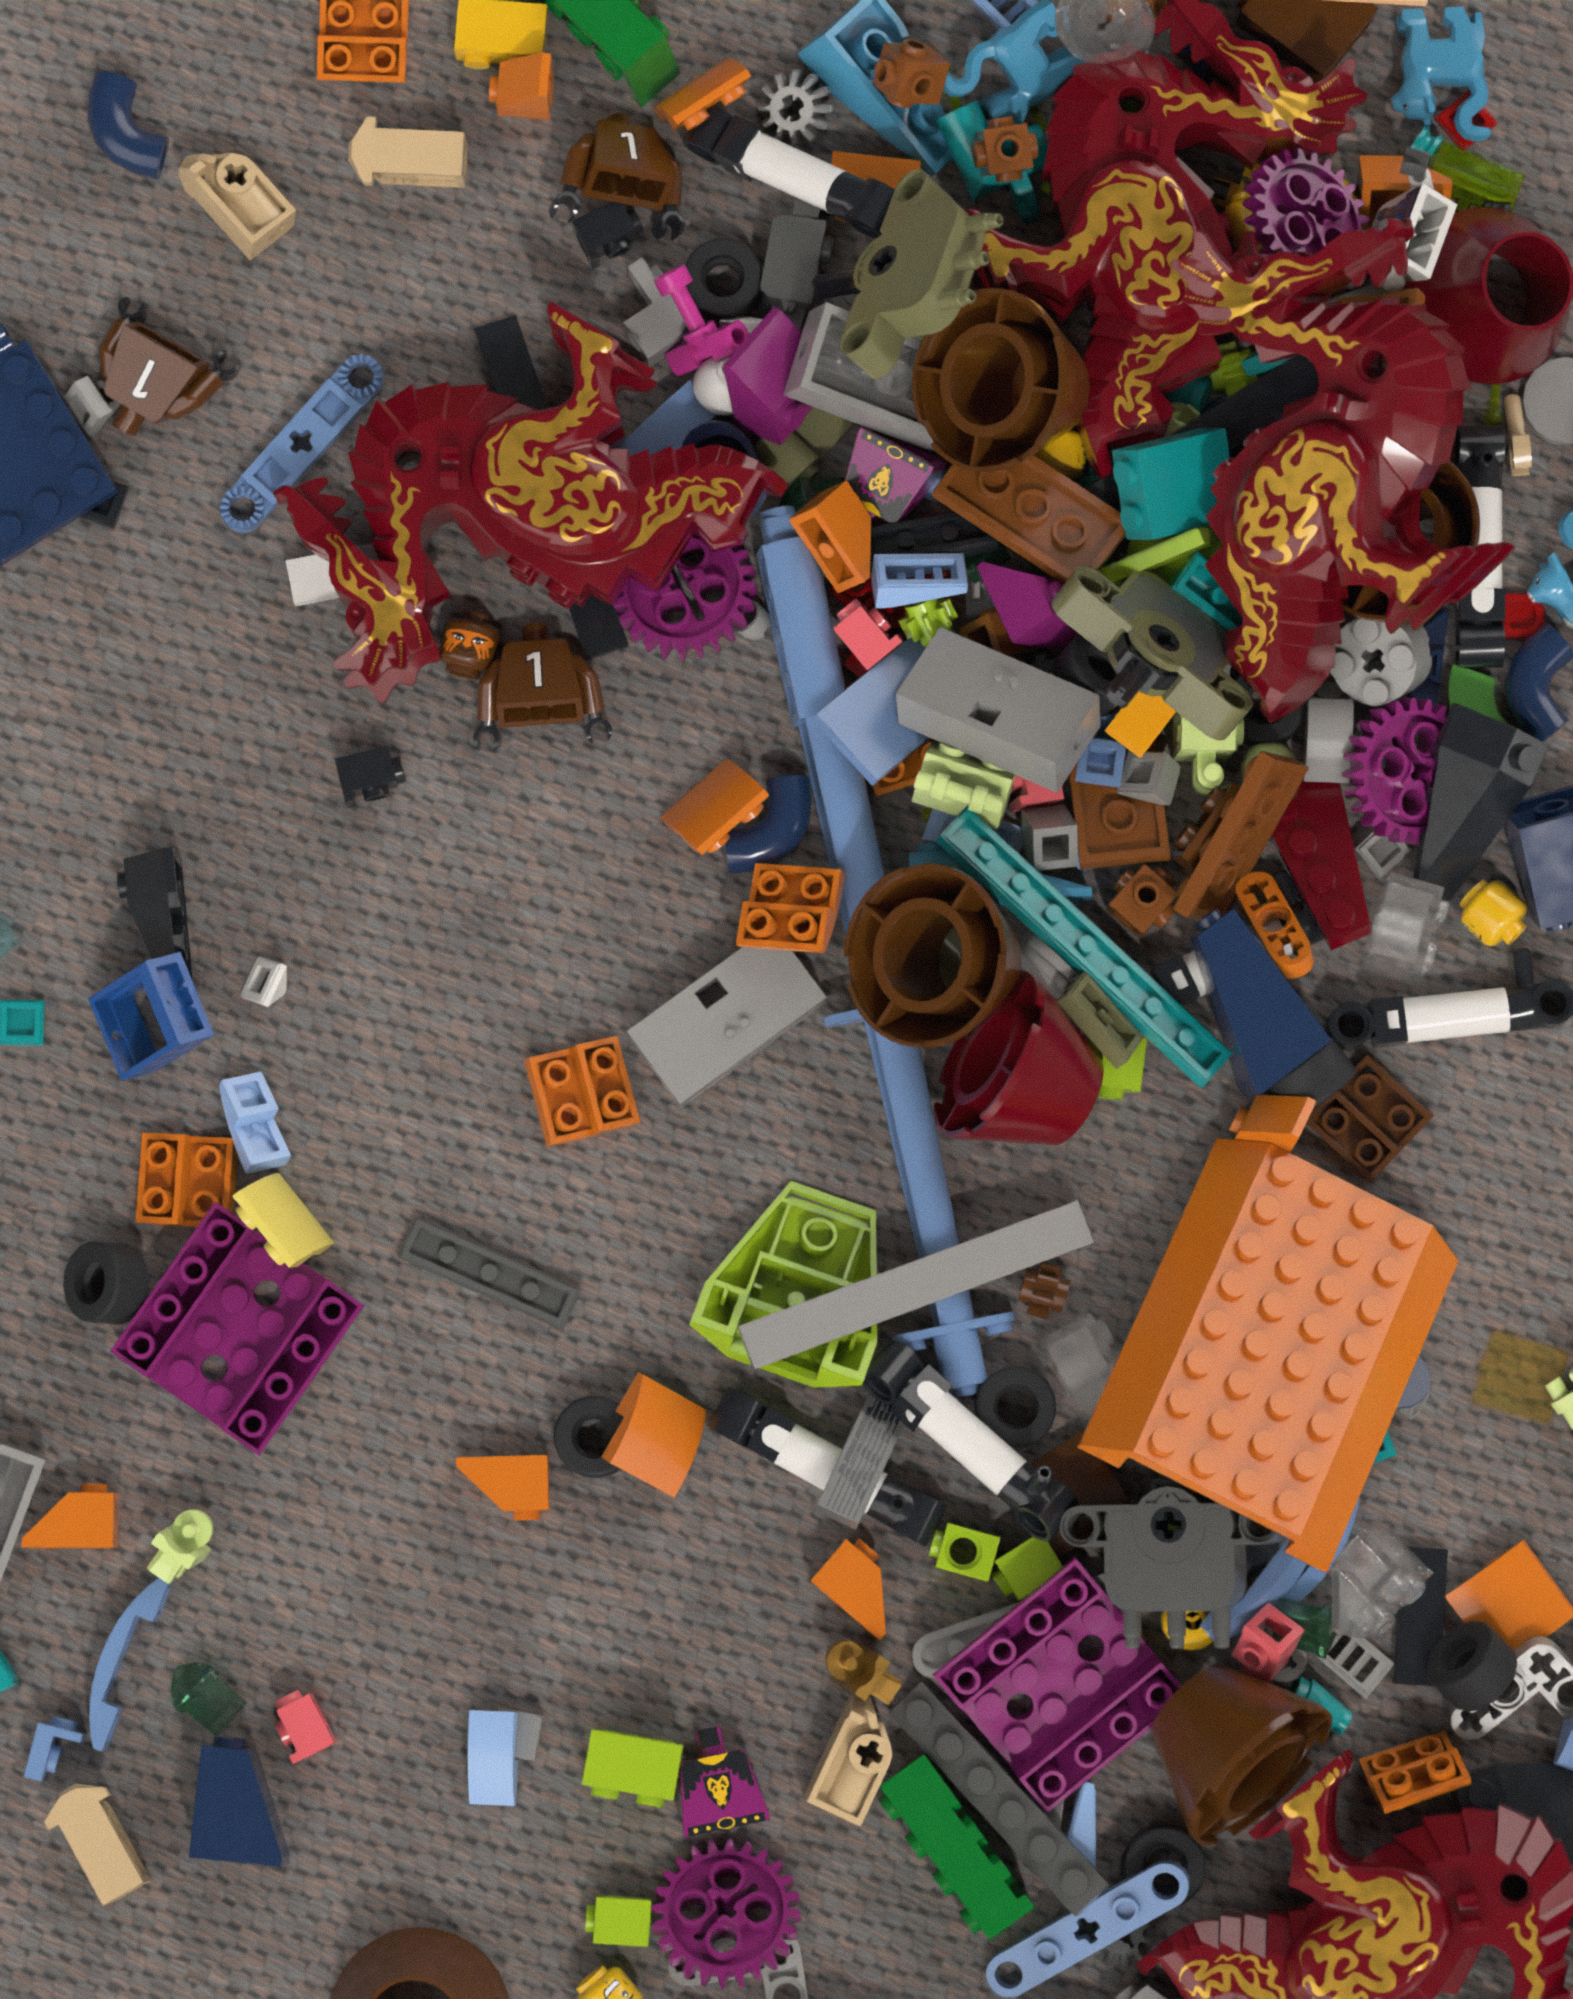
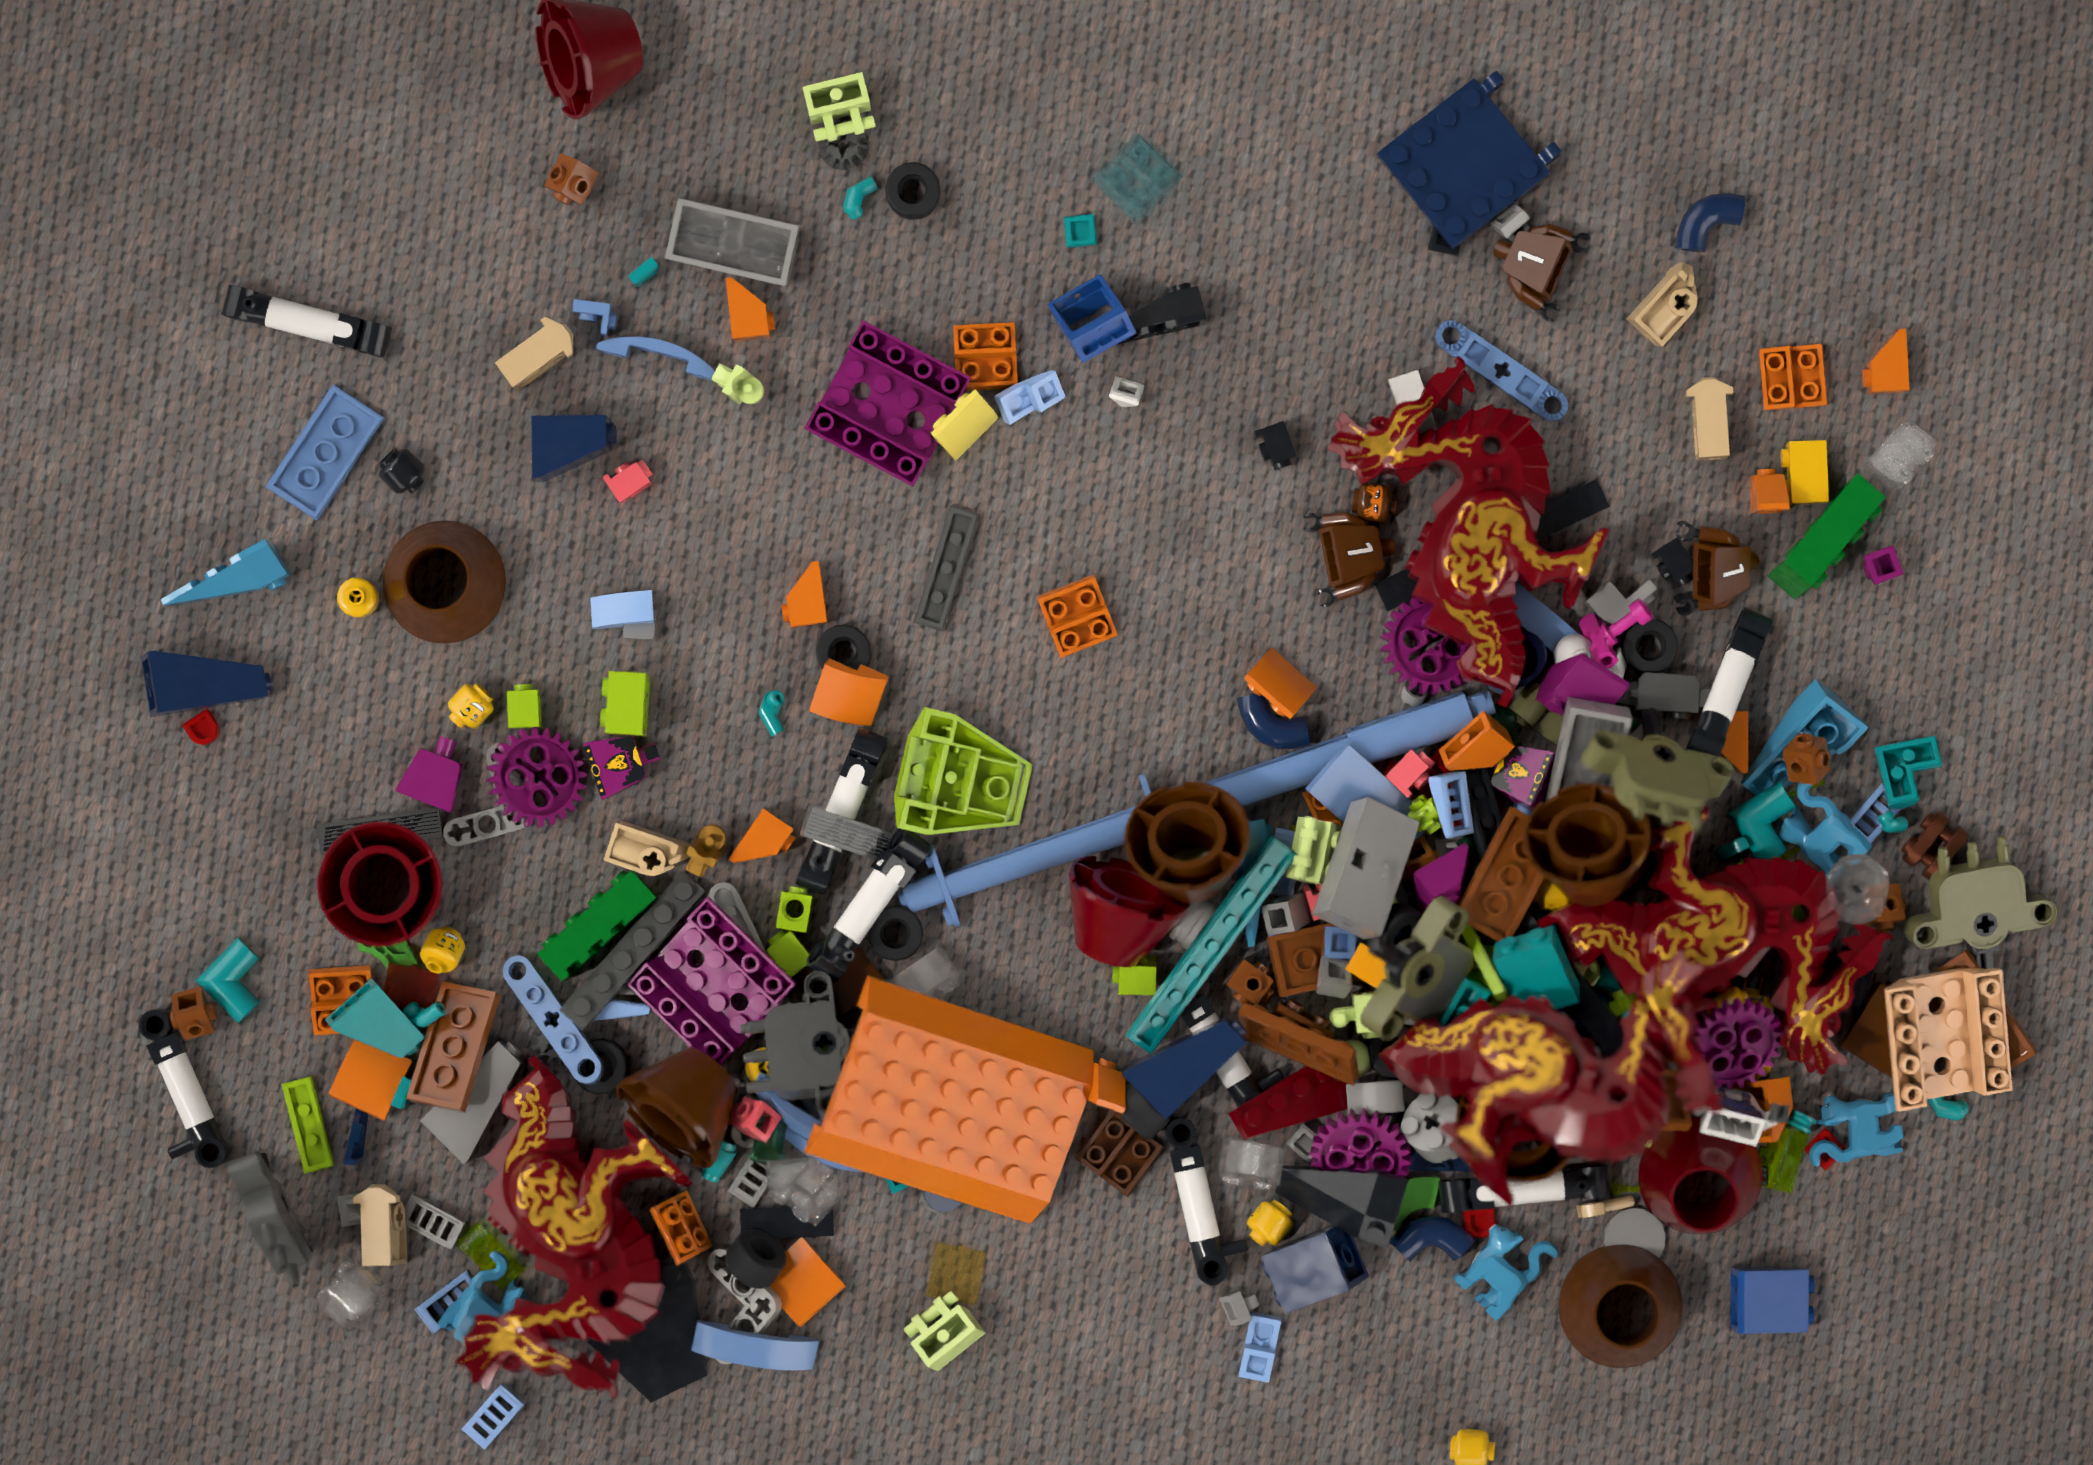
camera: 85 degrees right, 5 degrees up
(105, 1282) = (909, 311): black tyre -> none
(204, 1696) = (641, 412): clear green tile -> none
(667, 1556) = (769, 711): none -> teal arm
(690, 103) = (1771, 607): orange slope -> none
(725, 1019) = (1138, 708): light grey brick -> none
(782, 100) = (1788, 678): light grey gear -> none
(791, 908) = (1214, 742): orange slope -> none
(915, 1285) = (968, 856): light grey tile -> none
(988, 153) = (1760, 818): dark orange brick -> none
(1044, 1290) = (976, 944): reddish brown gear -> none
(1100, 1019) = (1162, 961): olive tile -> none
(1275, 907) = (1230, 1073): orange beam -> none

